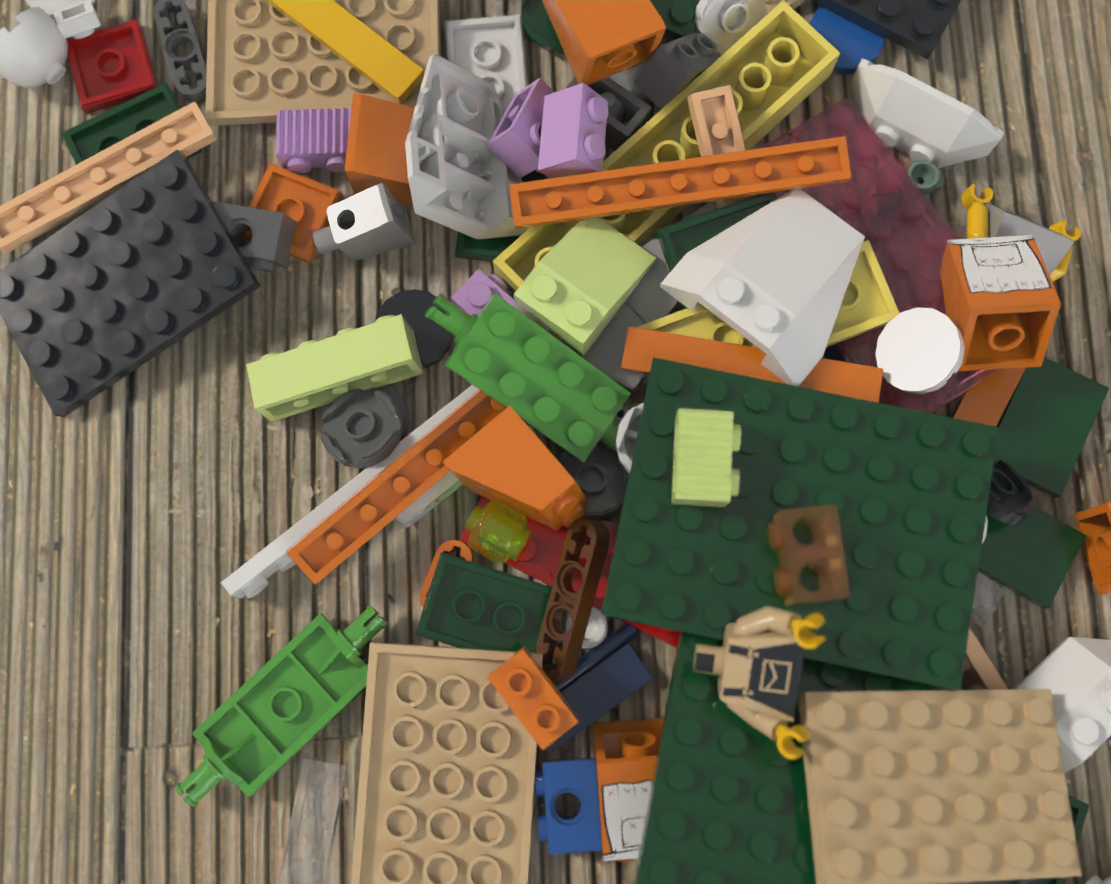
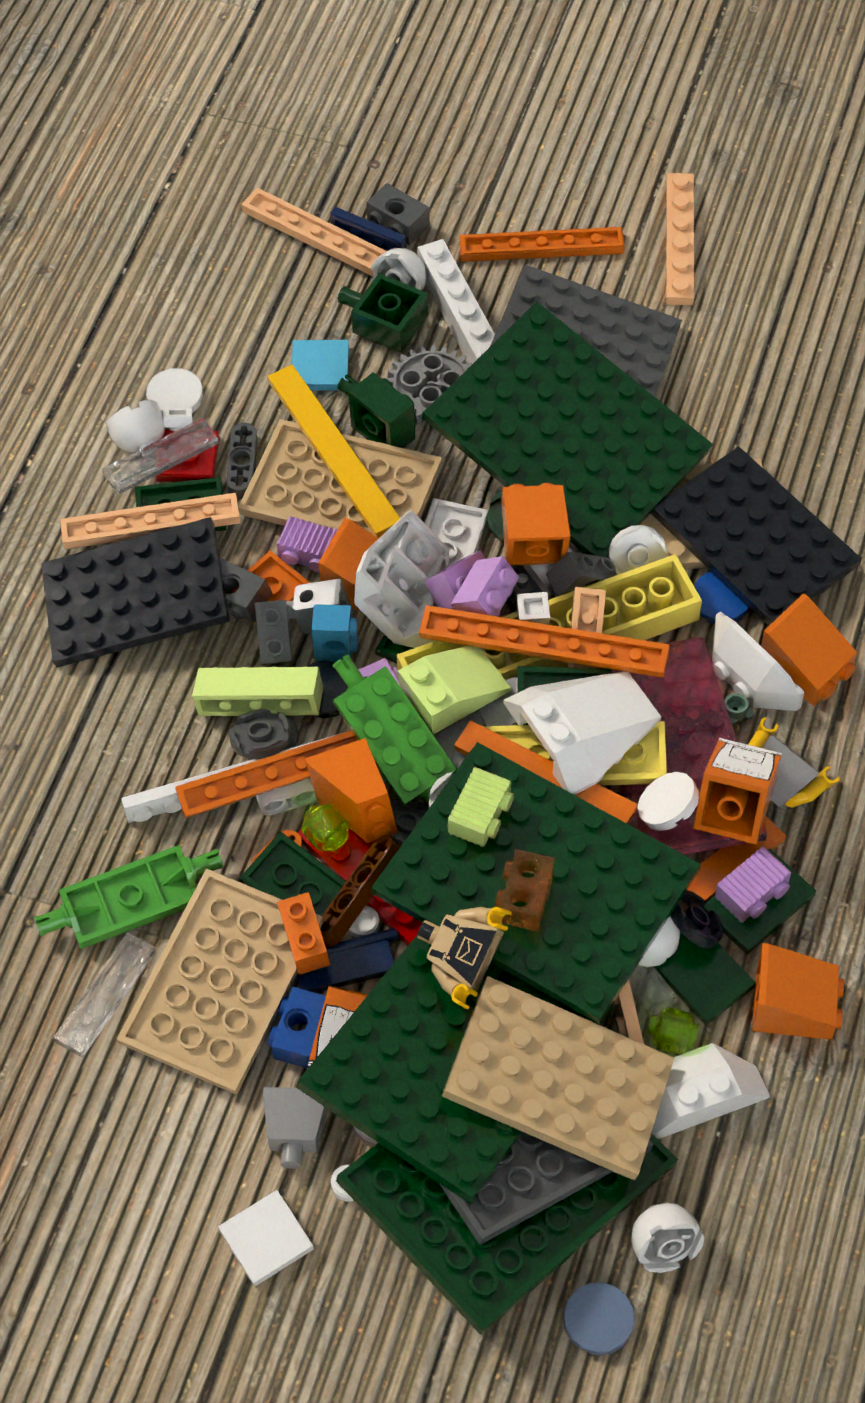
camera: 20 degrees right, 20 degrees down
(76, 81) = (160, 456): none -> clear plate
(322, 281) = (273, 632): none -> dark grey brick
(399, 255) = (333, 632): none -> dark azure brick
(643, 139) = (533, 607): none -> white plate
(989, 70) = (810, 649): none -> orange slope
(1021, 639) = (673, 1030): none -> clear neon green head
(1044, 414) = (753, 885): none -> lavender brick

